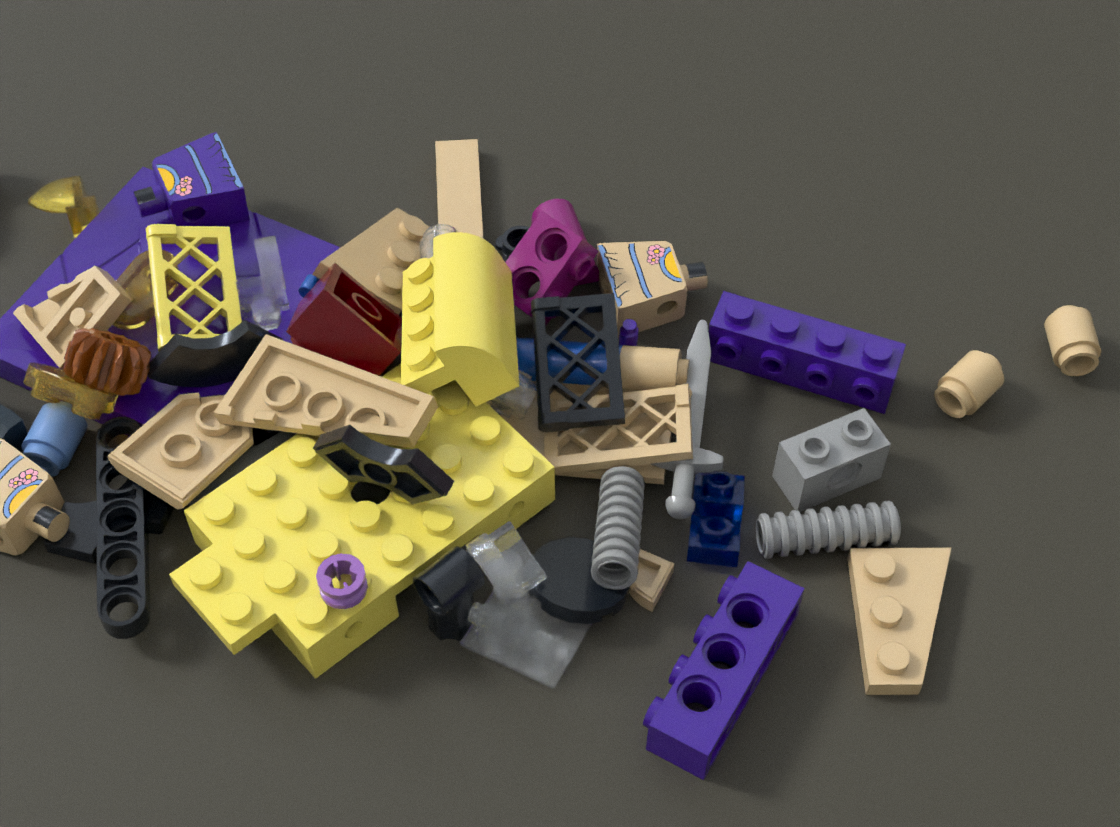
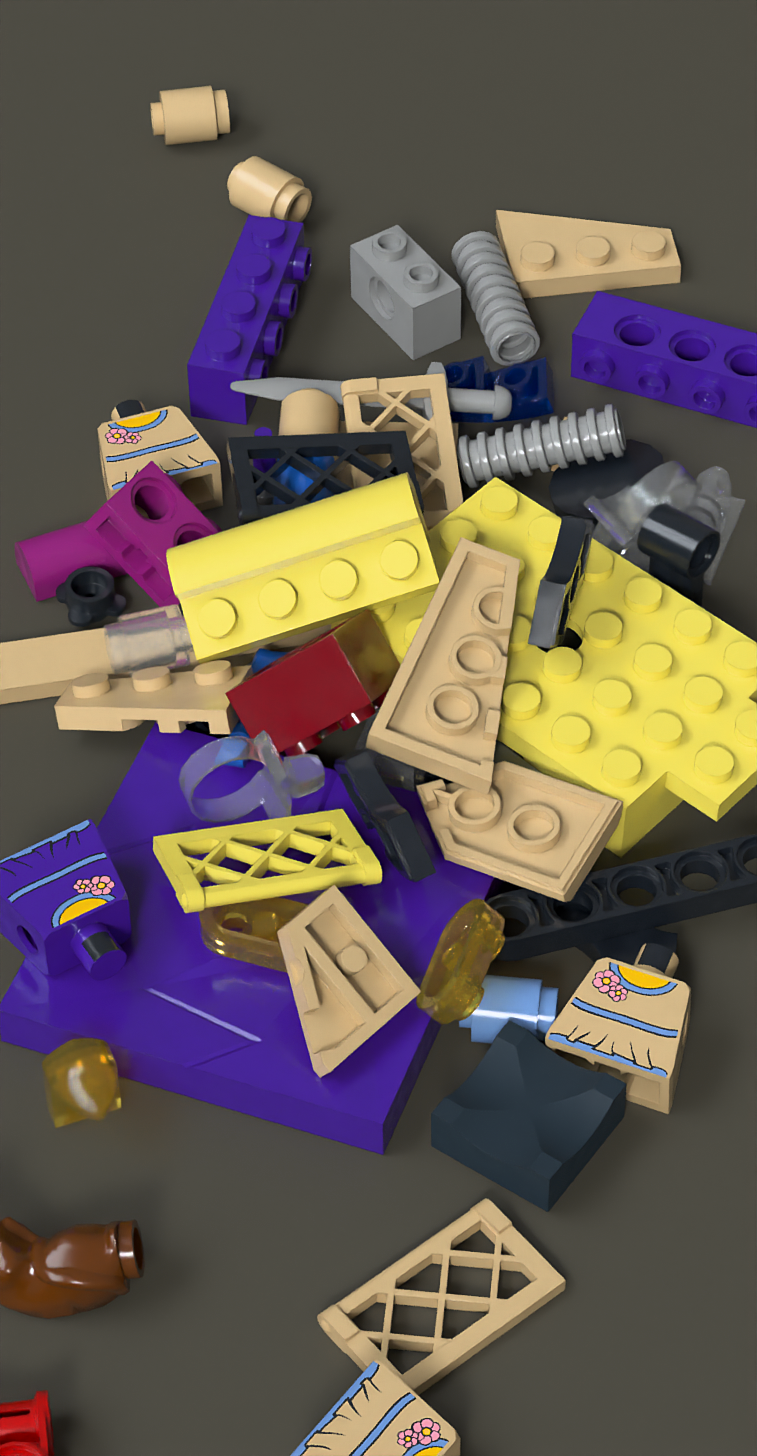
camera: 95 degrees left, 5 degrees down
(107, 361) = (425, 910): dark orange gear -> none
(334, 567) = (707, 635): medium lavender bush -> none

